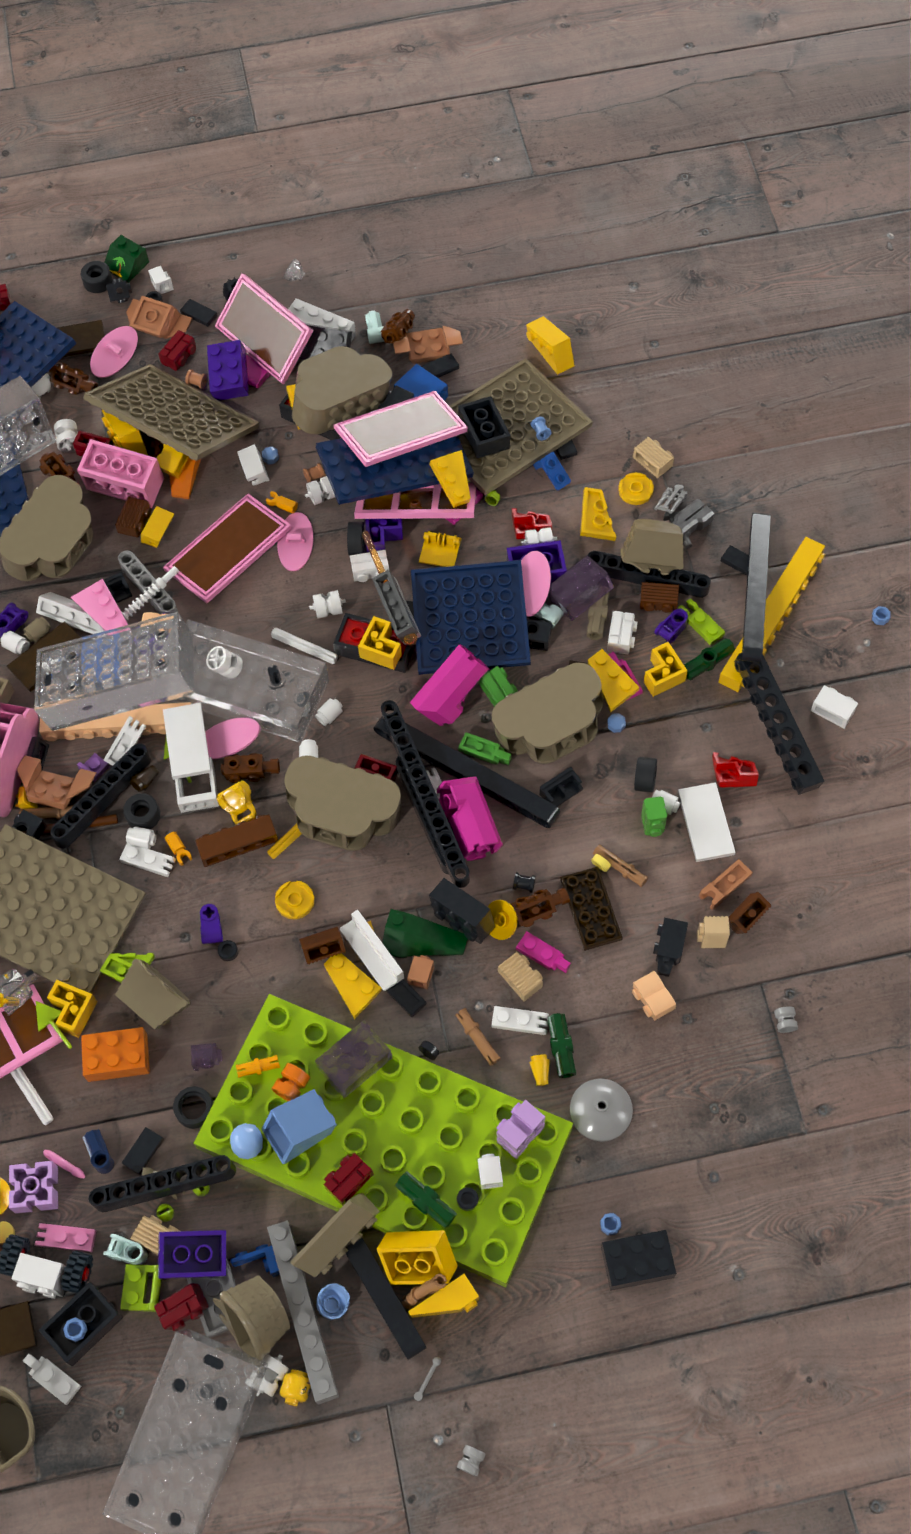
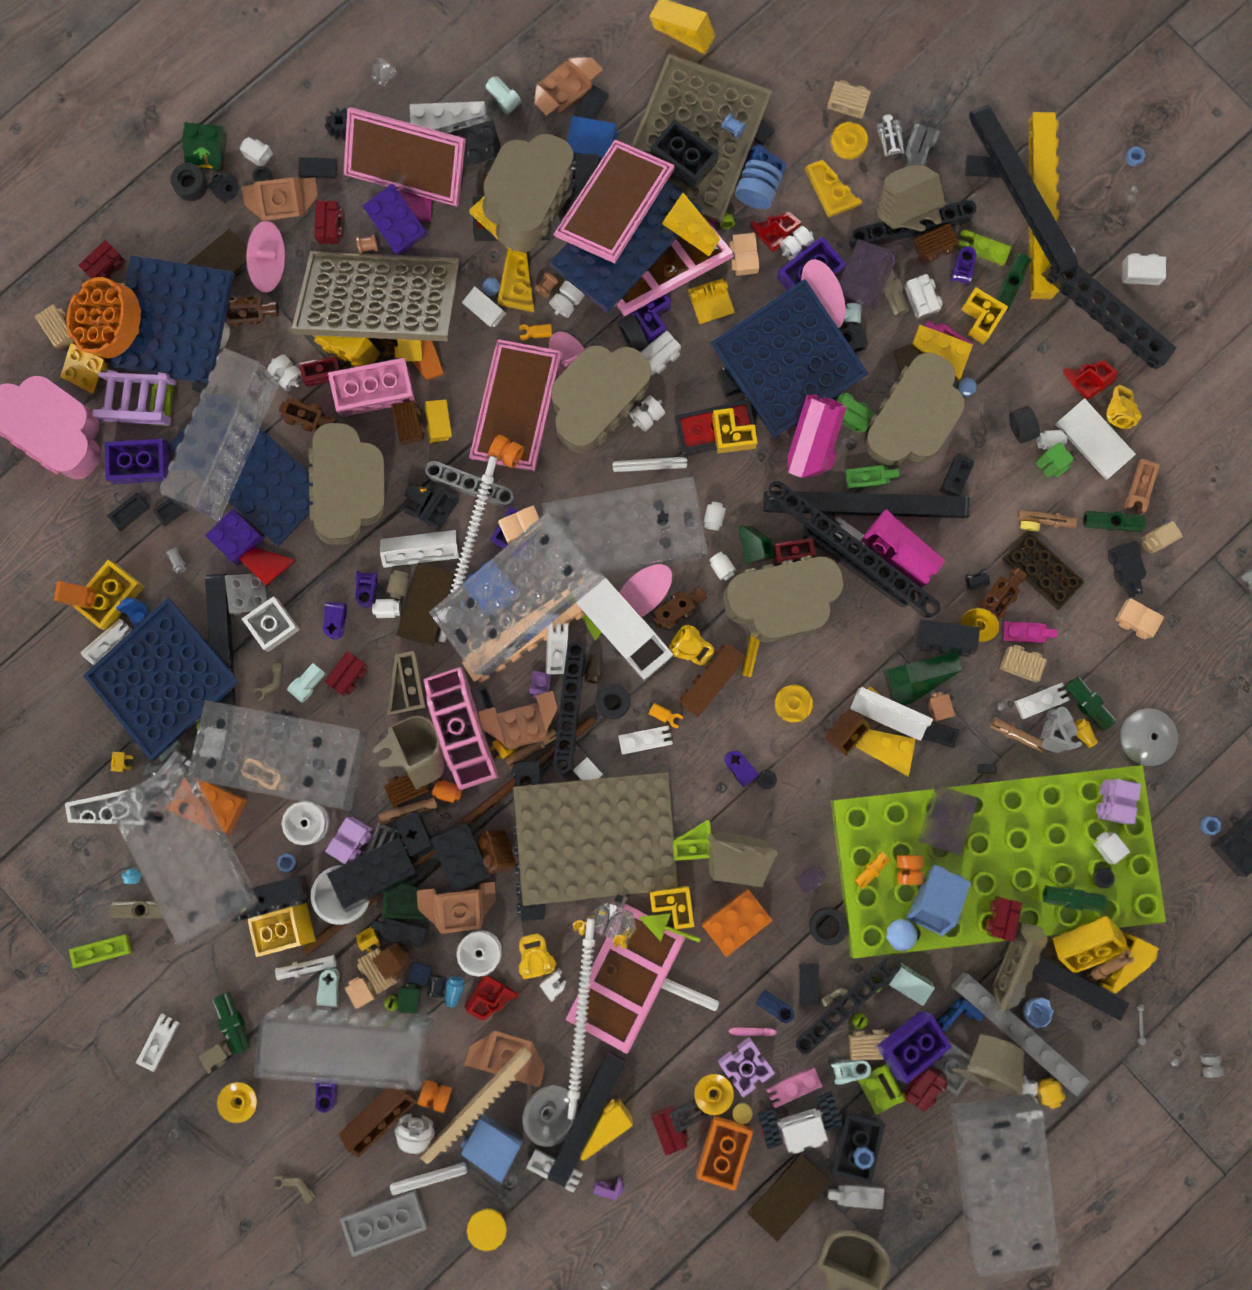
camera: 35 degrees left, 20 degrees up
(81, 852) = (587, 770): none -> white brick
(100, 570) = (419, 496): none -> black piece
(100, 606) = (450, 533): bright pink wing -> none
(141, 837) = (628, 724): white brick -> none
(191, 572) = (506, 451): none -> orange wheel
(224, 662) = (613, 532): white wheel -> none
(233, 1204) = (912, 984): none -> light aqua hinge
(291, 460) = (515, 283): none -> yellow wing
(294, 567) = (597, 394): none -> dark tan brick
(347, 749) = (755, 545): none -> dark green slope
(393, 599) = (712, 379): dark grey piece -> none
(398, 326) = (528, 83): reddish brown brick -> none
(490, 527) = (745, 254): none -> light nougat brick
(513, 1051) = (1058, 731): none -> light grey piece
(534, 480) = (758, 184): none -> medium blue wheel
(691, 905) = (1125, 522): none -> dark green piece
(744, 810) = (1121, 410): none -> yellow piece
(748, 913) = (1178, 504): reddish brown brick -> none

